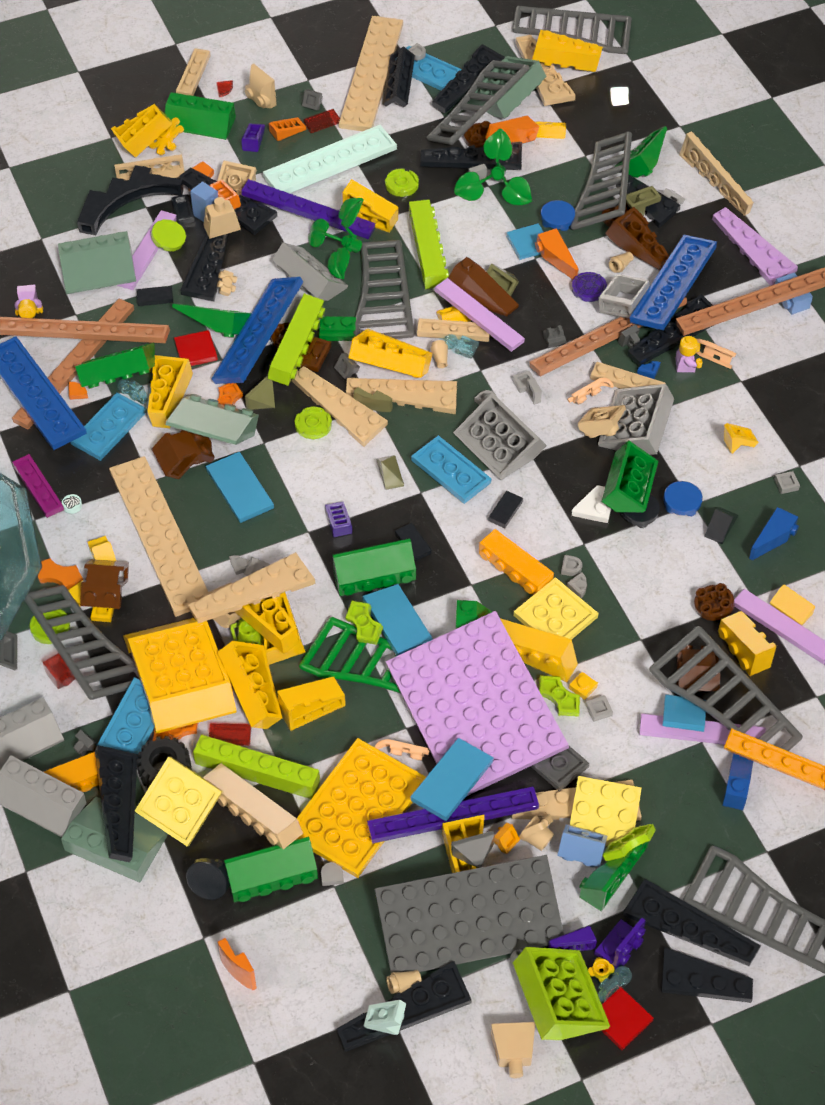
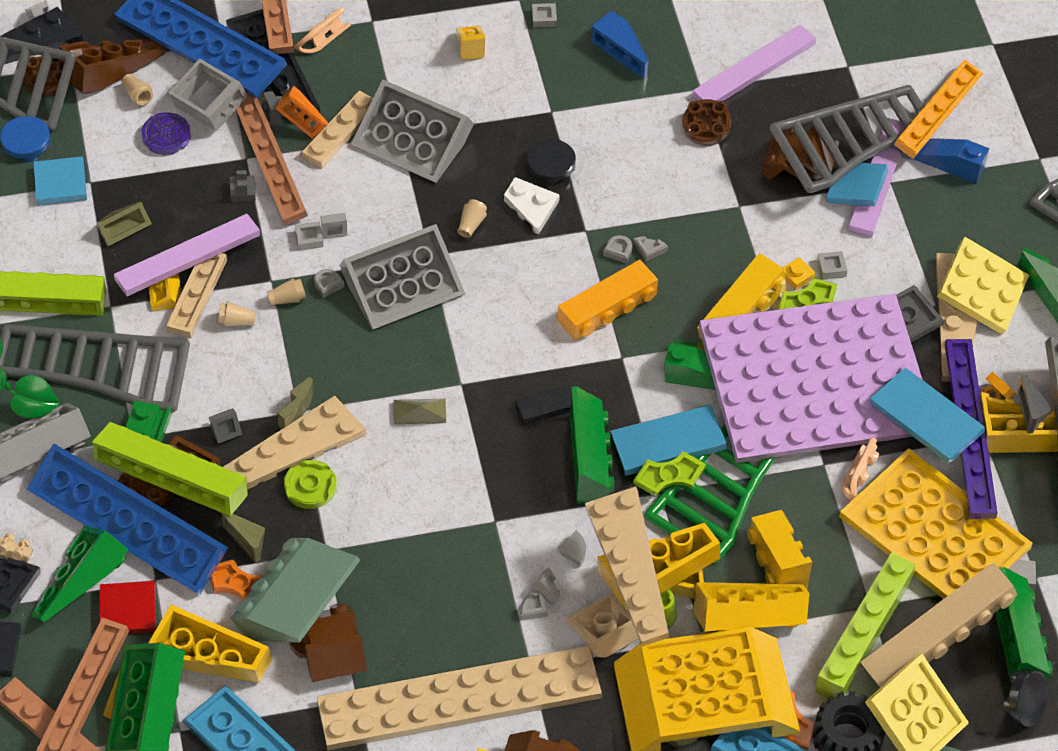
camera: 80 degrees left, 0 degrees up
(134, 390) = (192, 692): clear light blue plate -> none
(232, 733) = (804, 655): clear red tile -> none
(239, 487) = (401, 588): dark azure tile -> none
(341, 529) = (496, 486): dark purple slope -> none
(390, 353) = (226, 366): yellow wedge -> none
(421, 393) = (293, 356): tan wing -> none
(451, 469) = (438, 340): dark azure plate -> none
(464, 346) = (230, 284): clear light blue plate -> none
(469, 379) = (289, 292): none -> tan cone
(482, 287) = (129, 246): reddish brown wedge -> none
(505, 509) = (515, 297): black tile -> none
(537, 832) = (996, 355): tan piece -> none
(556, 252) = (103, 149): orange slope -> none
(556, 611) = (692, 276): light yellow plate -> none
(568, 469) = (472, 216): none -> tan cone
(582, 846) = (1024, 313): medium blue brick -> none
(593, 389) = (348, 167): light nougat piece -> none
(601, 421) = (408, 162): tan slope -> none
(622, 846) = (1034, 274): lime tile -> none
(626, 345) = (301, 102): none -> orange slope
(630, 479) = (513, 156): green slope -> none
(643, 198) = (41, 32): olive slope -> none
(649, 370) = (328, 103): blue tile -> none
(683, 498) = (546, 116): blue tile -> none
(685, 355) = (329, 54): piece -> none
(720, 525) = (593, 88): black slope -> none
(746, 643) = (774, 102): yellow wedge -> none
(792, 605) = (724, 53): yellow slope -> none

